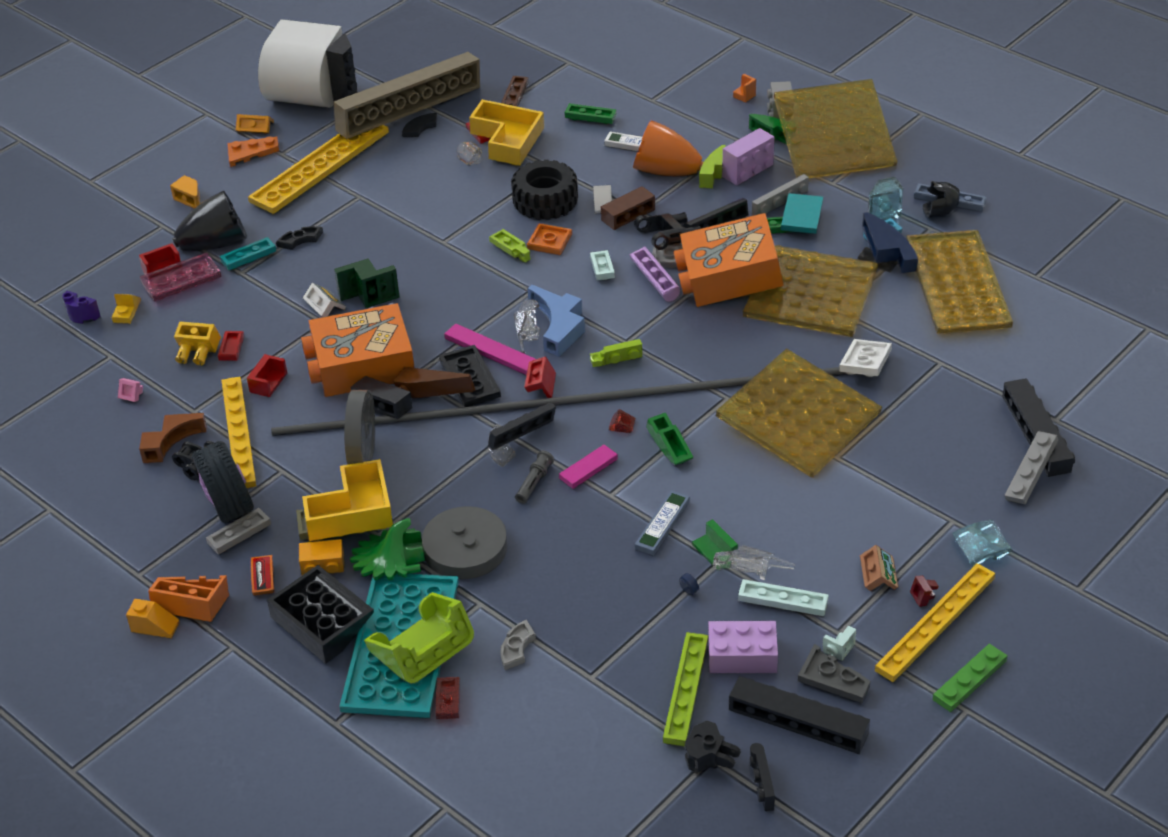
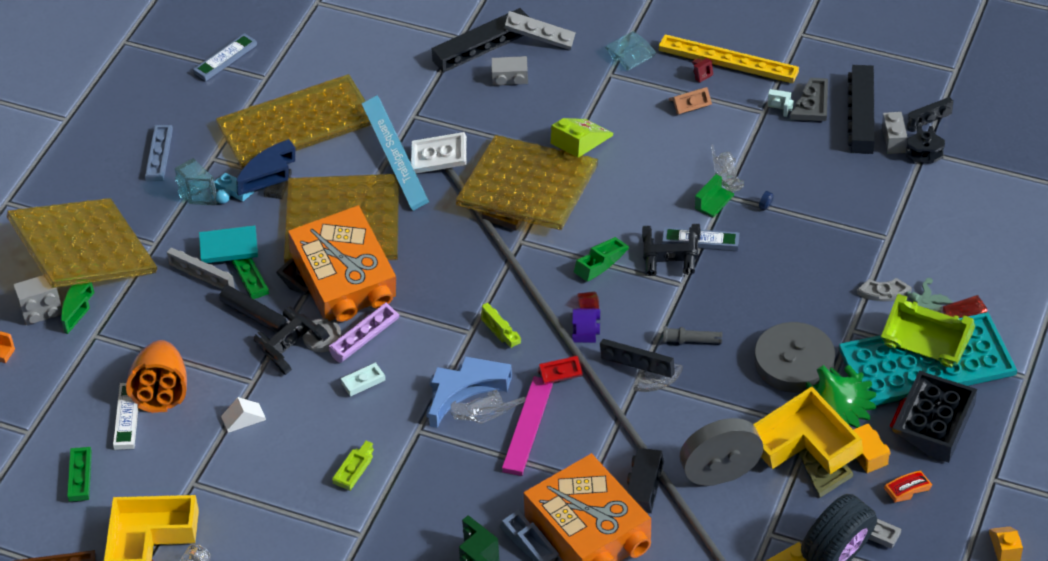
camera: 110 degrees left, 5 degrees up
(190, 598) = (968, 518): orange wedge -> none
(433, 382) = (610, 450): reddish brown slope -> none
(469, 361) = (576, 429): black plate -> none
(480, 674) = (927, 301): none -> sand green piece
(544, 189) = (260, 478): black tyre -> none
(549, 239) = (328, 440): orange tile -> none
(588, 466) = (657, 306): dark pink tile -> none
(593, 408) = (585, 325): none -> dark purple cylinder
(627, 208) = (258, 385): reddish brown brick -> none
(652, 479) = (681, 251): none -> black connector
(685, 689) = (871, 175): lime plate -> none
(711, 168) = (177, 335): lime slope -> none
(742, 647) = (816, 151): lavender brick -> none
(743, 727) = (894, 132): none -> light grey brick
(748, 156) = (147, 302): lavender brick -> none
(783, 597) = (749, 145): light aqua plate -> none
(849, 460) = (578, 135): none -> lime slope
(880, 329) = (395, 153): none -> medium azure tile
(946, 199) = (180, 147): black helmet -> none
(969, 677) = (771, 35): bright green plate -> none
(977, 436) = (509, 70): none -> light grey brick
(1075, 253) = (225, 57): none -> tile

